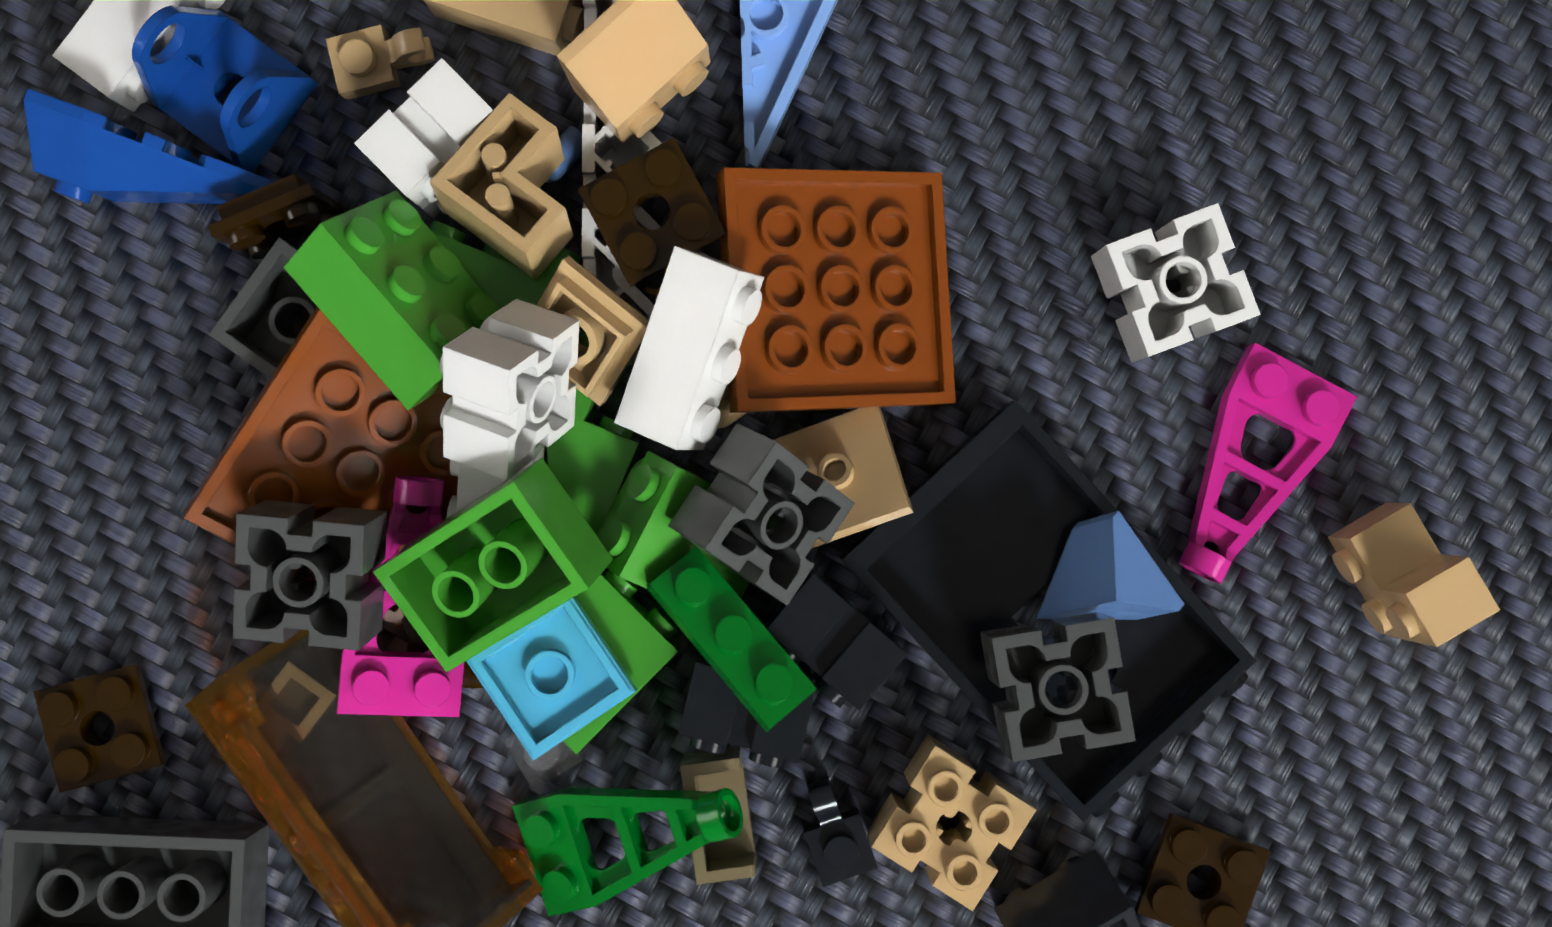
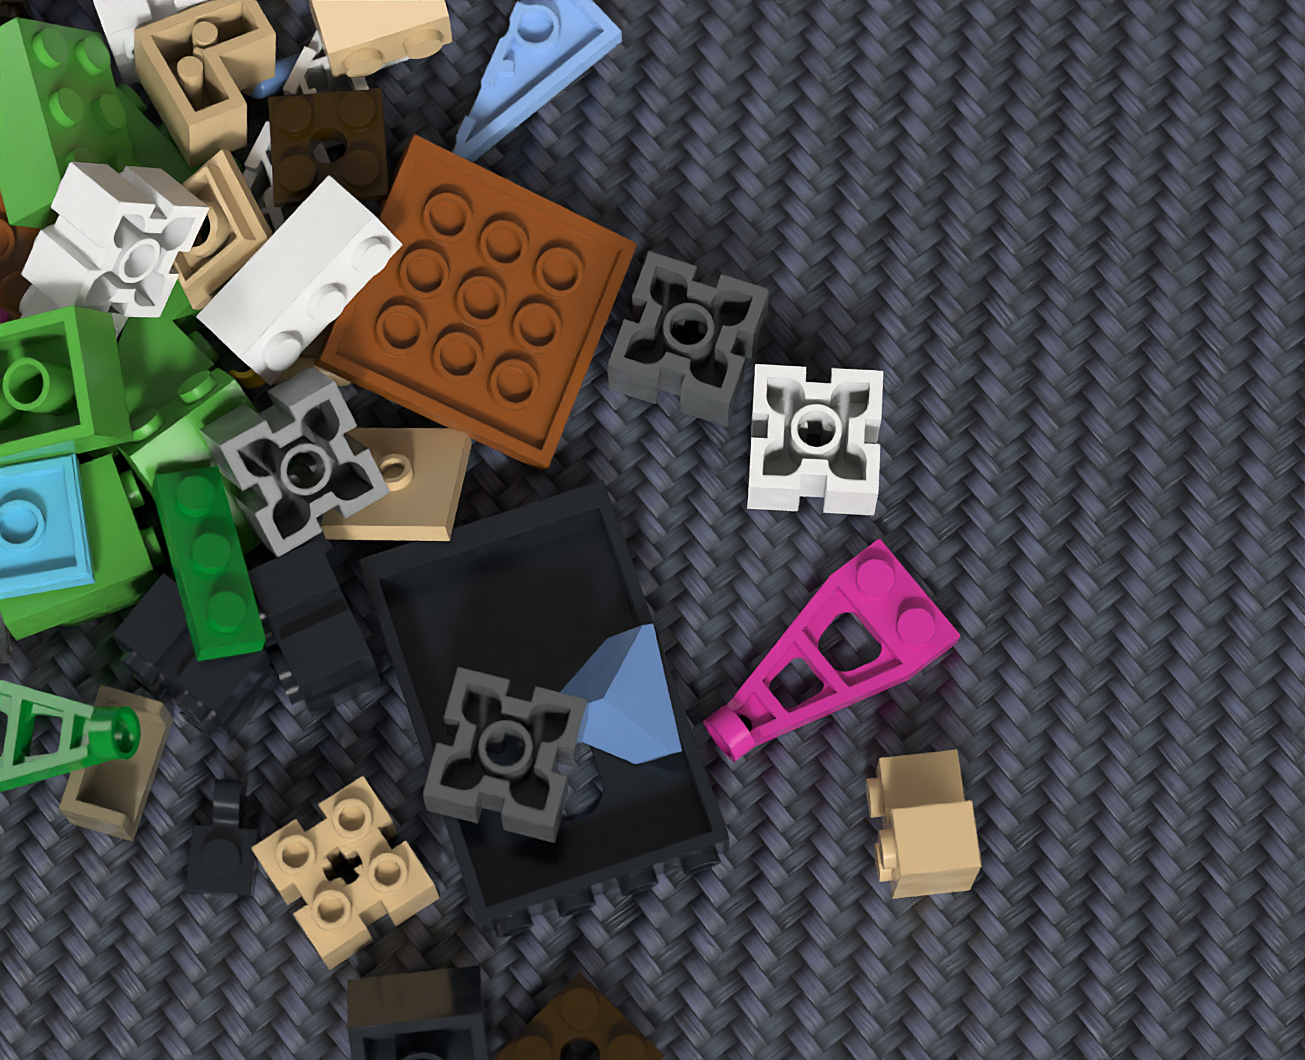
camera: 30 degrees right, 15 degrees down
(1049, 214) = (667, 308): none -> dark grey brick

